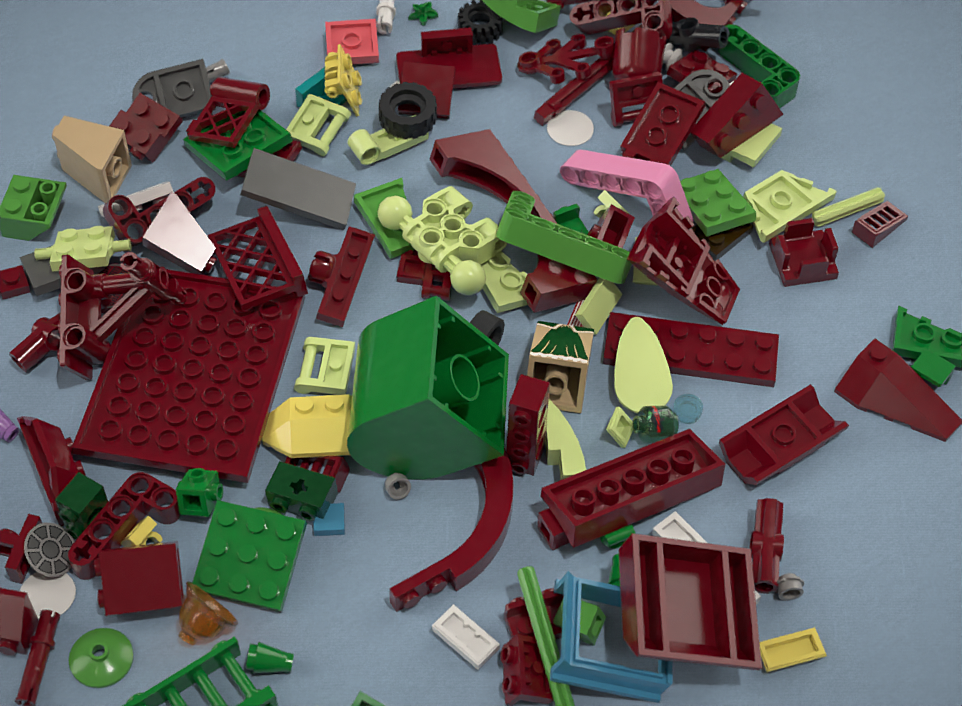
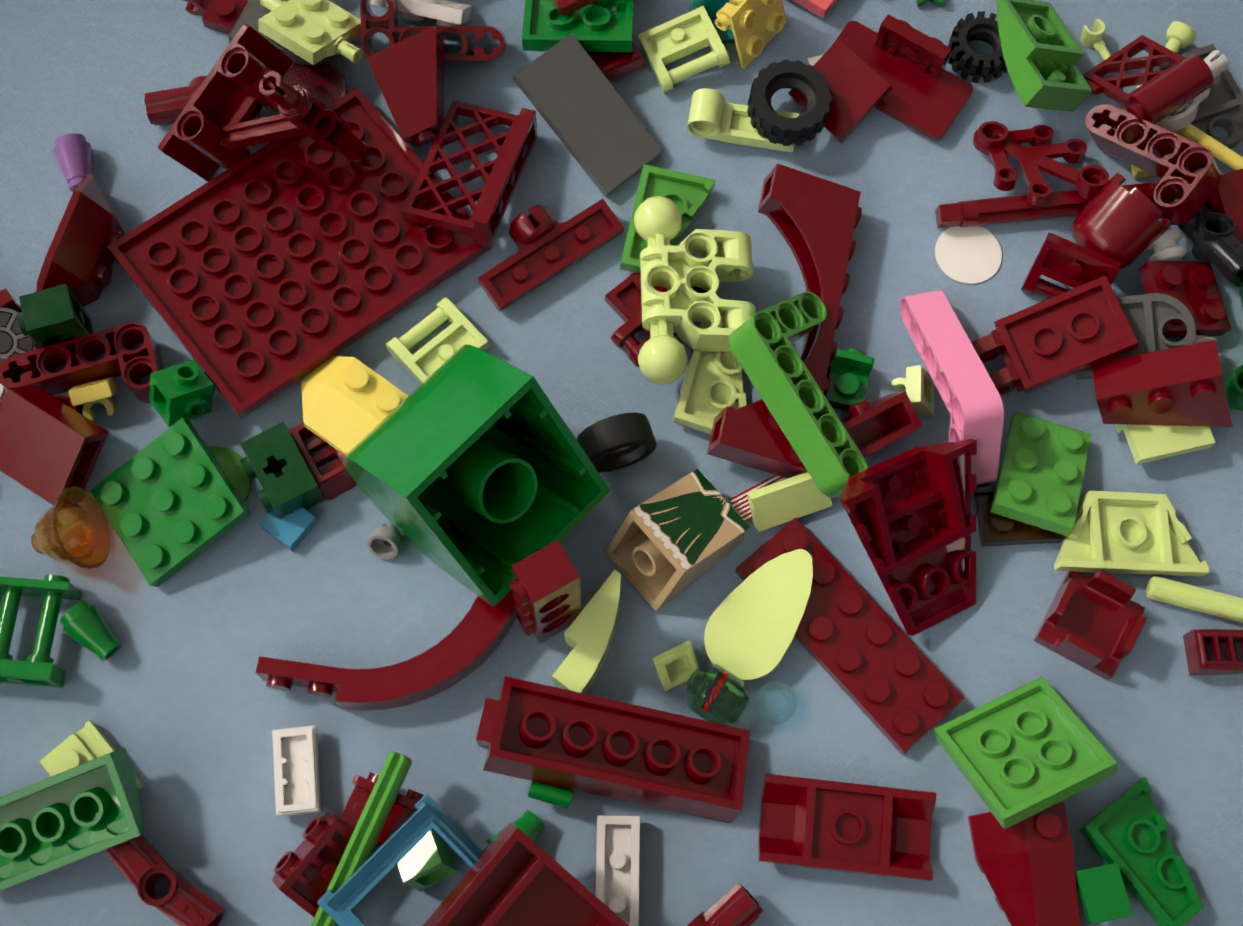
camera: 40 degrees right, 15 degrees up
(833, 331) = (1025, 752): none -> bright green plate

